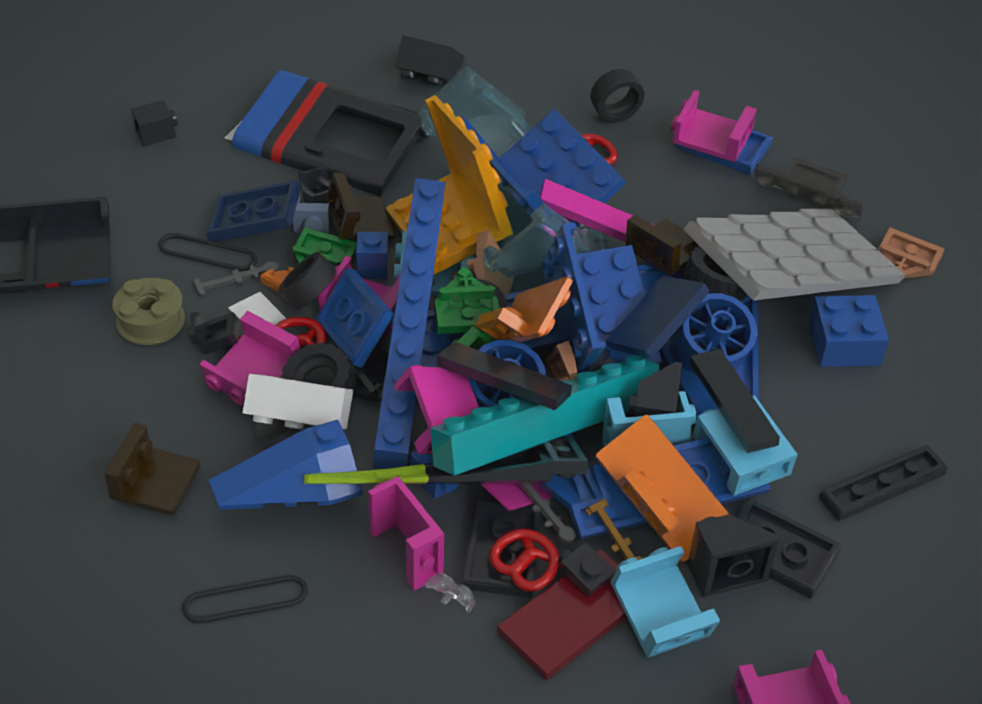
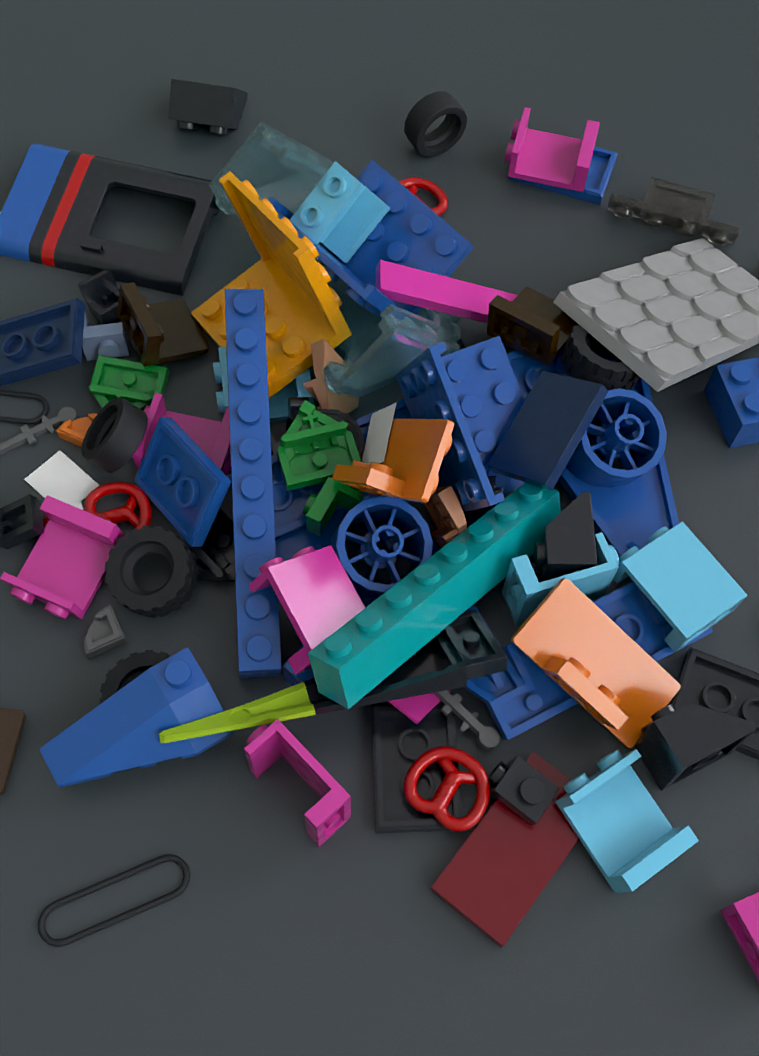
camera: 10 degrees left, 15 degrees up
(295, 402) = (131, 617): white brick -> none
(372, 255) = (186, 383): blue brick -> none
(445, 584) = (367, 841): clear piece -> none
(504, 375) = (385, 556): black tile -> none
(519, 141) = (339, 213): none -> medium azure panel
(521, 296) = (378, 435): none -> white sticker
(621, 544) = (555, 741): pearl gold piece -> none
(734, 401) = (663, 537): black tile -> none

